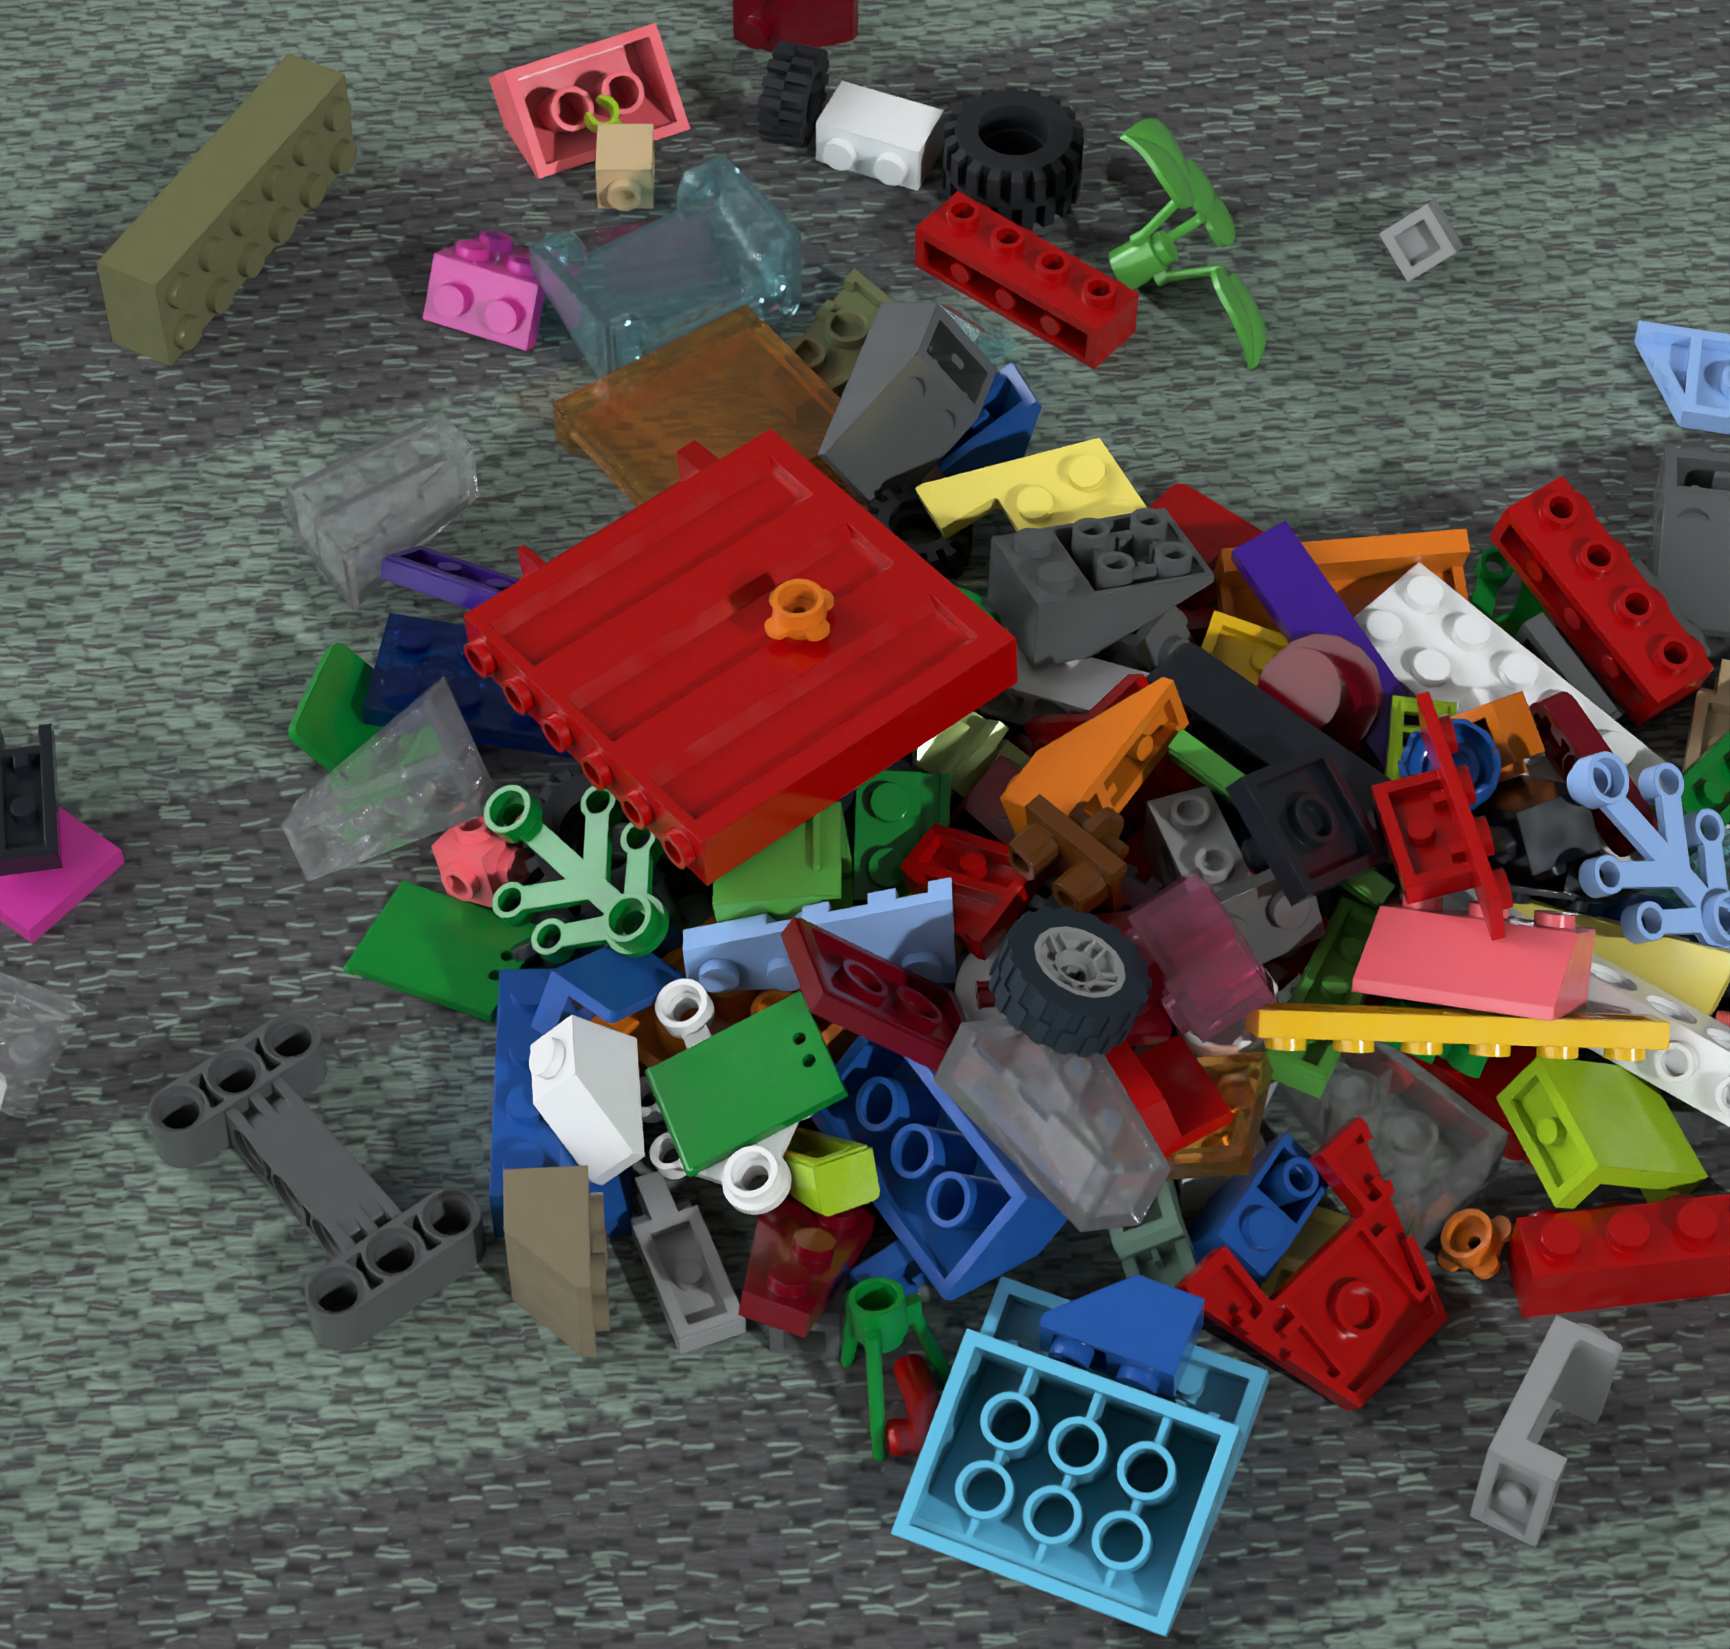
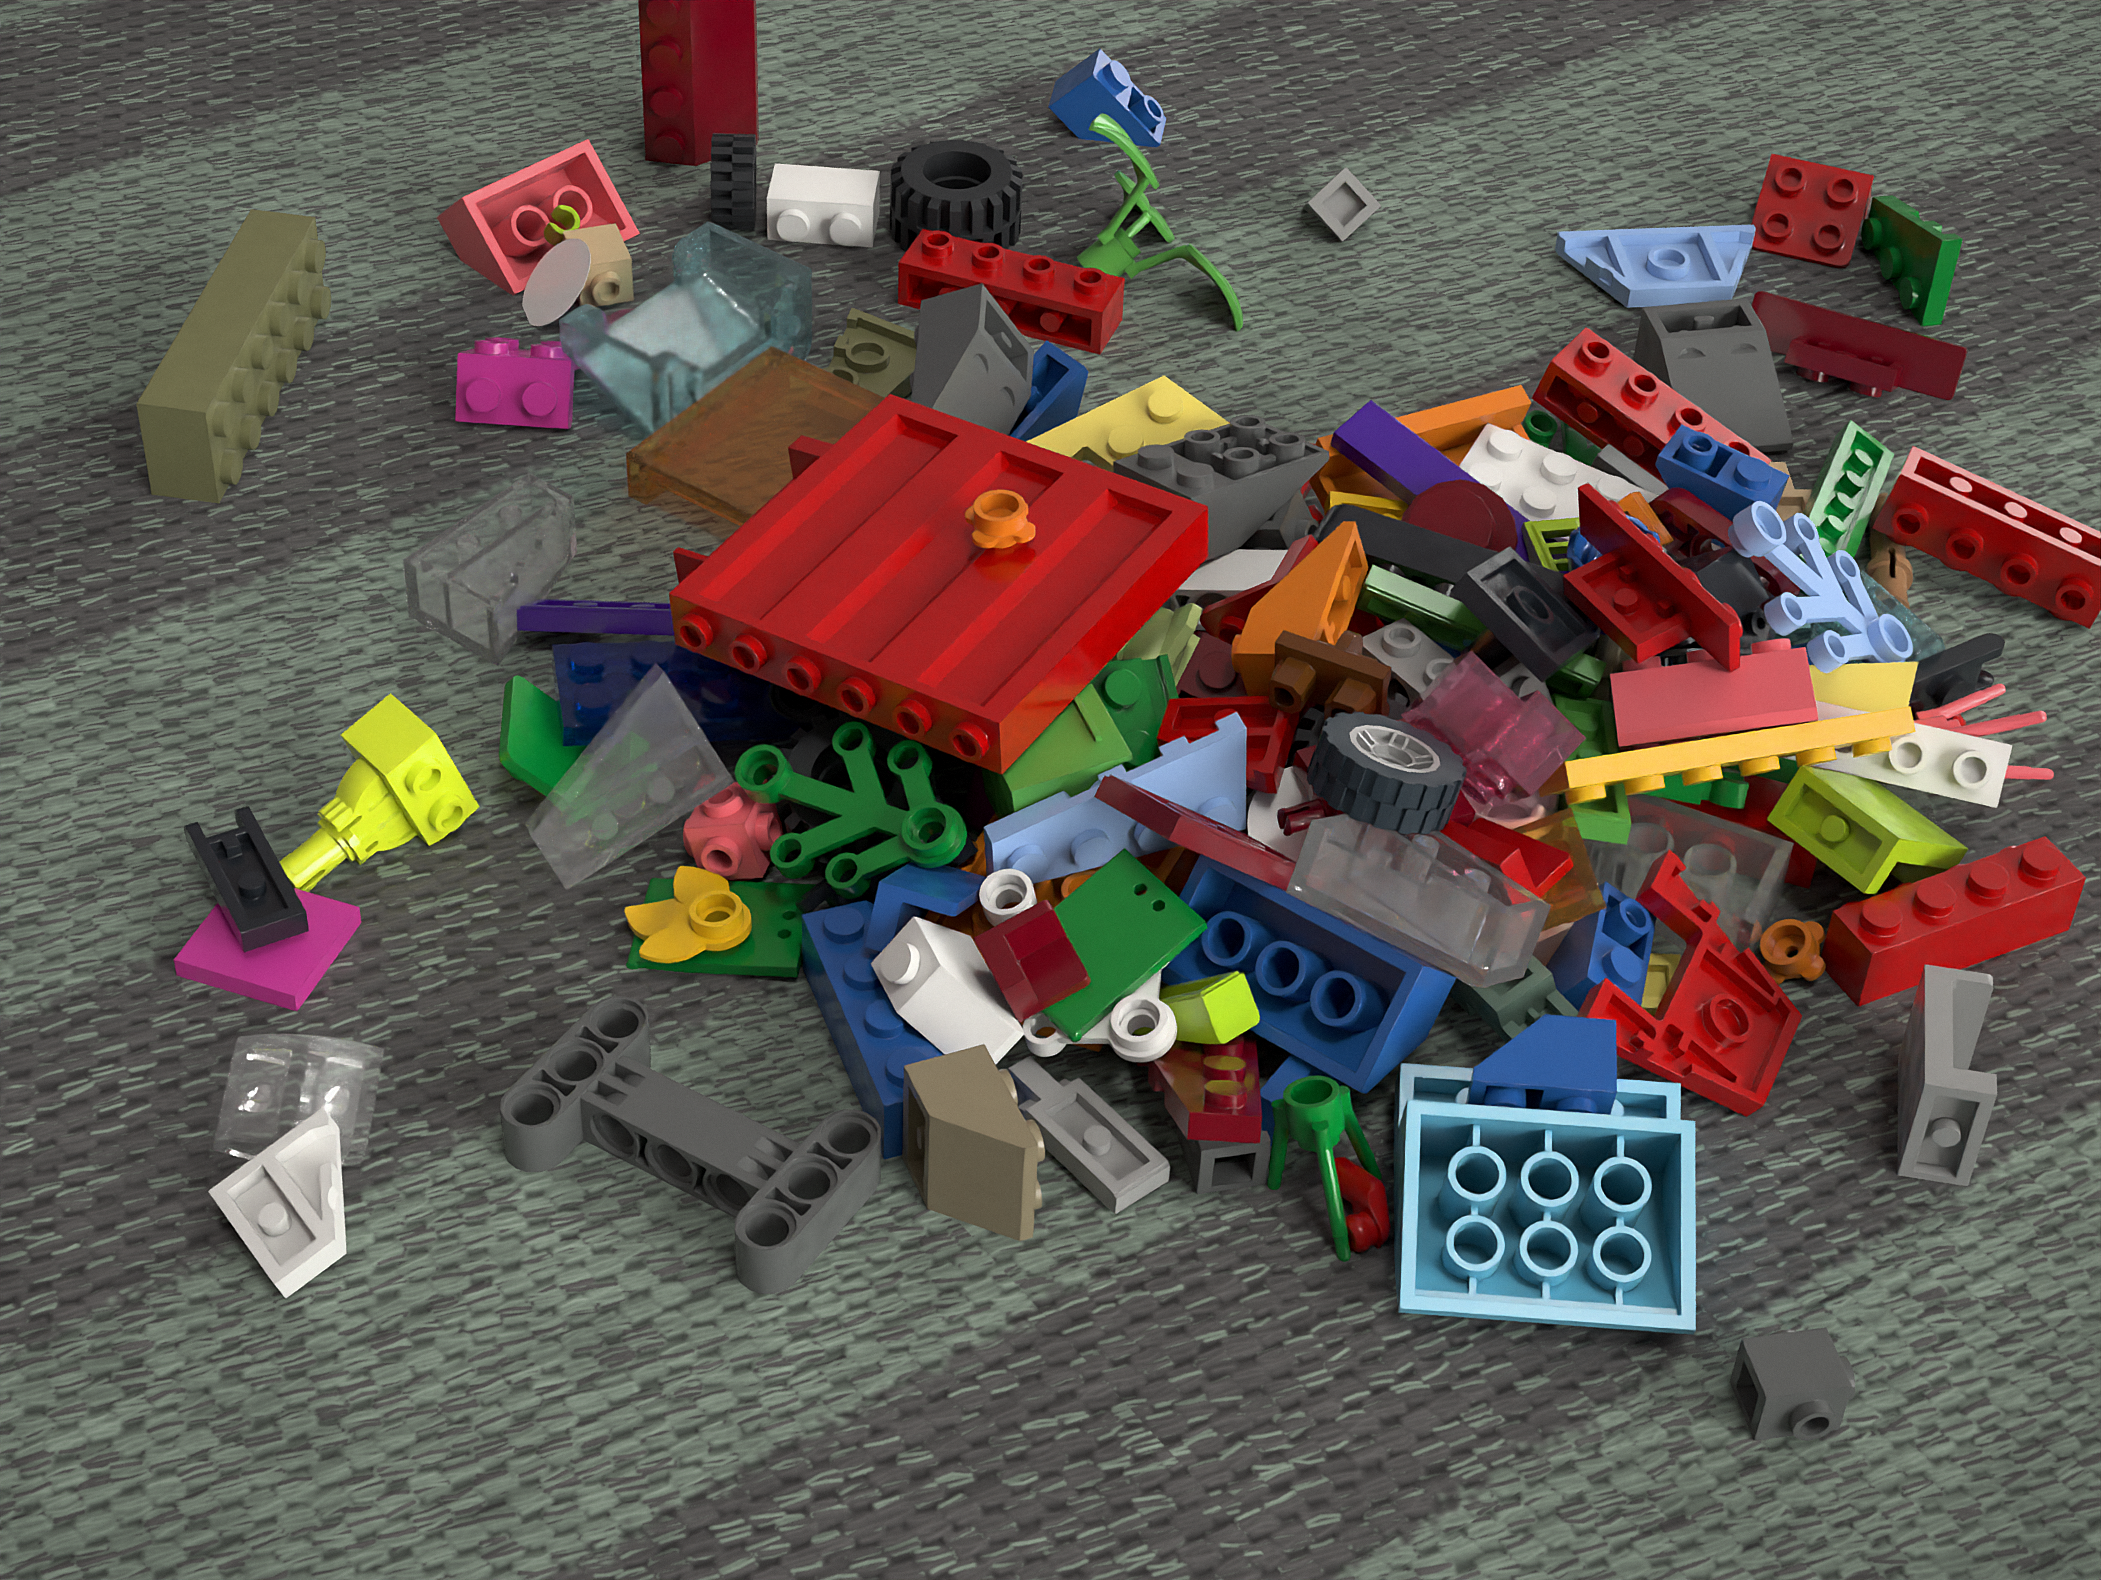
camera: 20 degrees left, 10 degrees down
(186, 738) = (386, 798): none -> neon yellow brick
(413, 941) = (695, 920): none -> yellow plate
(574, 179) = (556, 282): none -> white sticker
(667, 1088) = (1033, 960): none -> dark red panel
(1225, 66) = (1105, 87): none -> blue slope
(1621, 698) = (1718, 473): none -> blue slope

